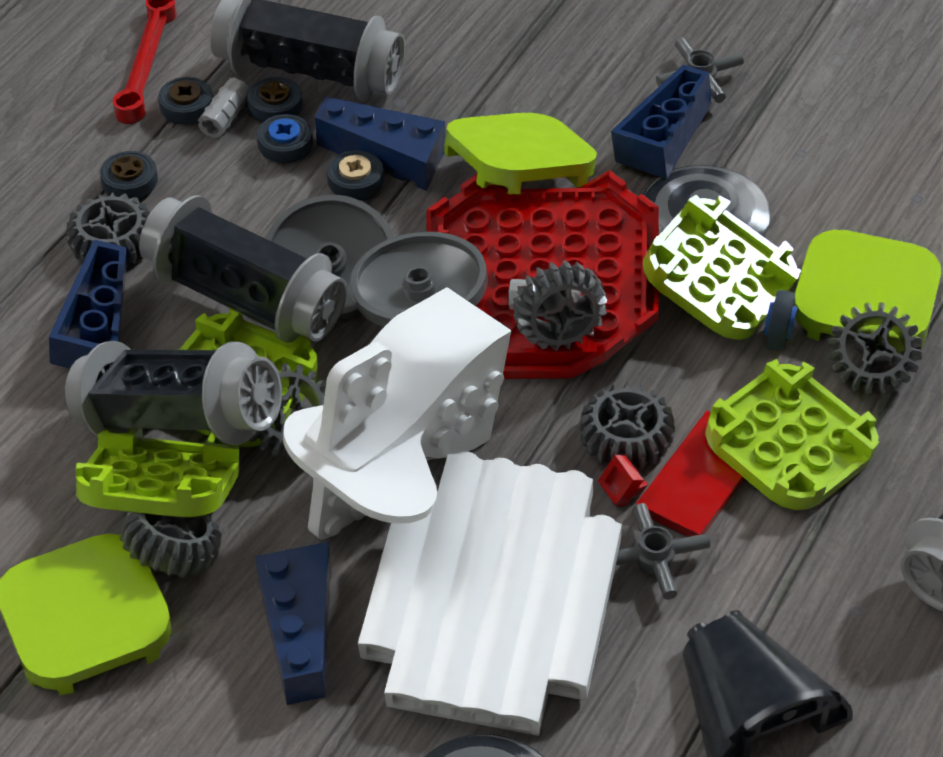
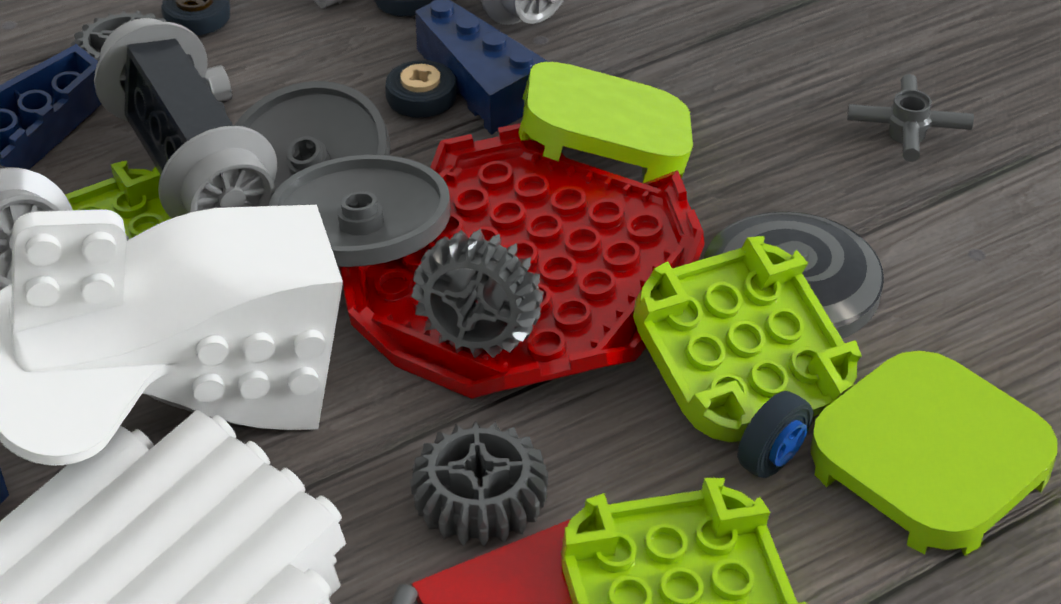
camera: 30 degrees right, 5 degrees down
(285, 138) = (381, 28): black wheel -> none
(622, 481) = (416, 547): red tile -> none
(663, 123) = (813, 153): dark blue wedge -> none
(863, 341) = (891, 508): dark grey gear -> none

